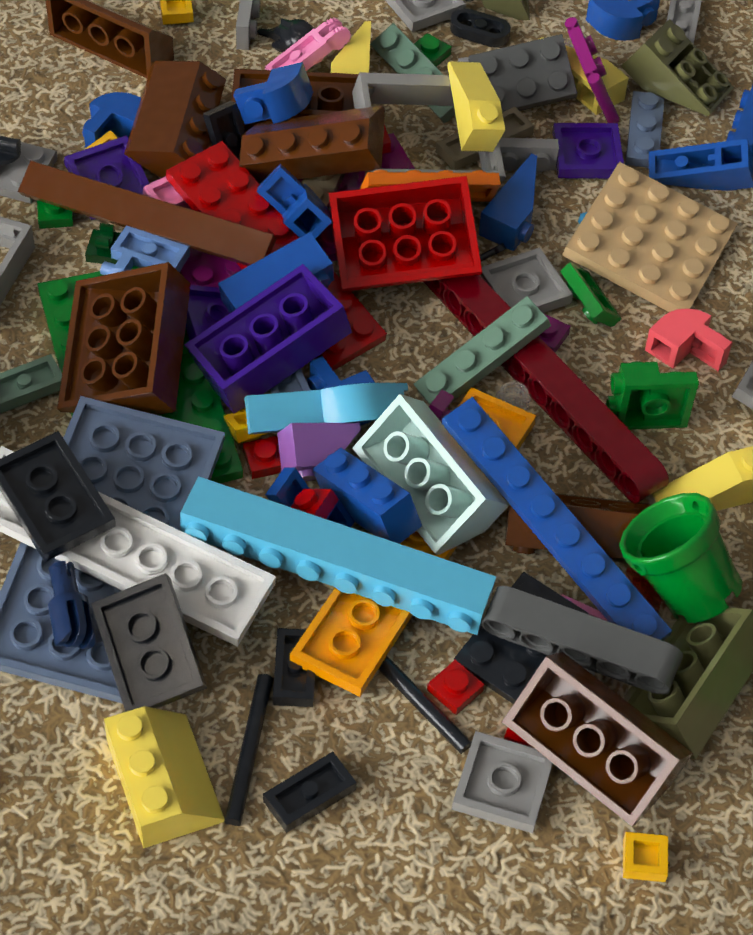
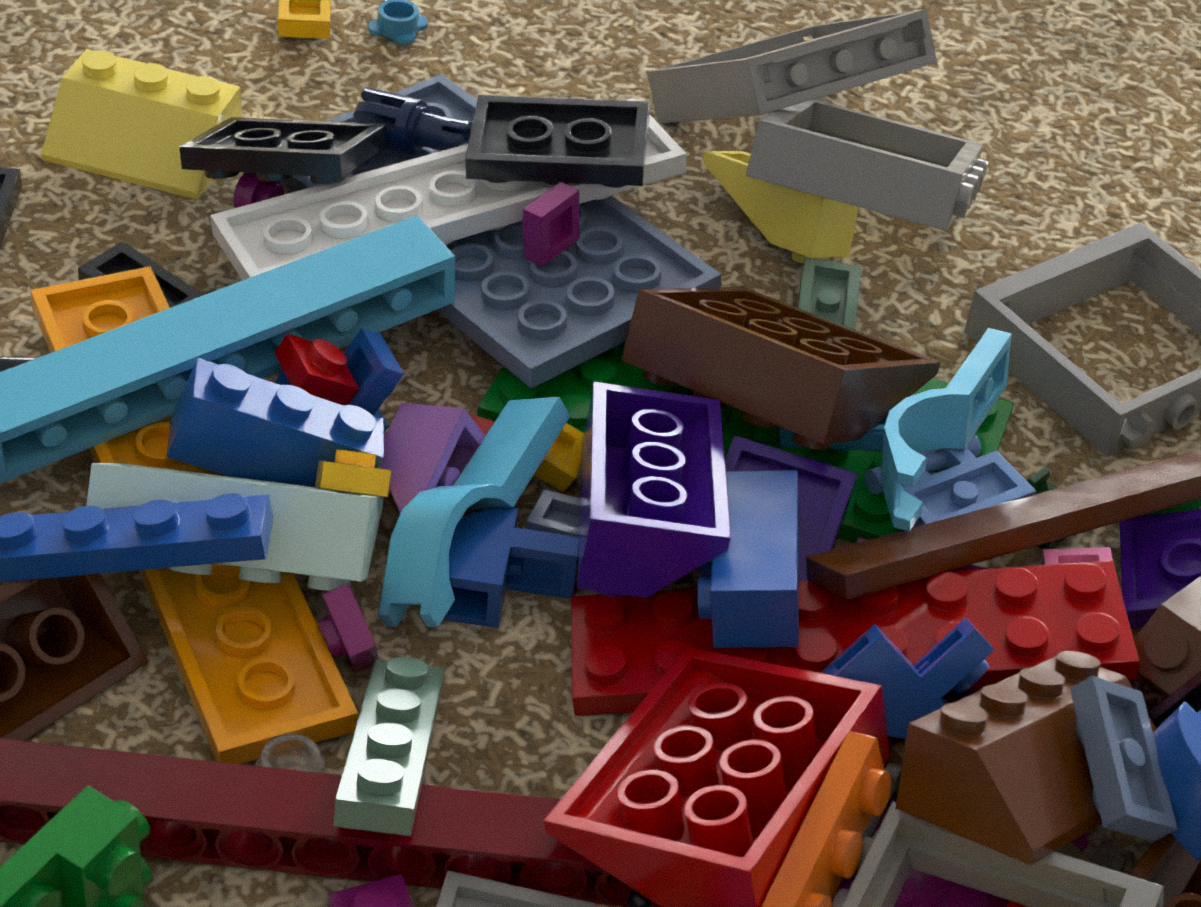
camera: 125 degrees right, 10 degrees down
(112, 255) = (940, 421): none -> medium azure piece
(114, 474) = (551, 223): none -> magenta plate
(248, 750) = (88, 205): black bar -> none
(310, 104) = (1122, 759): none -> sand blue plate
(368, 444) = (353, 473): none -> yellow plate

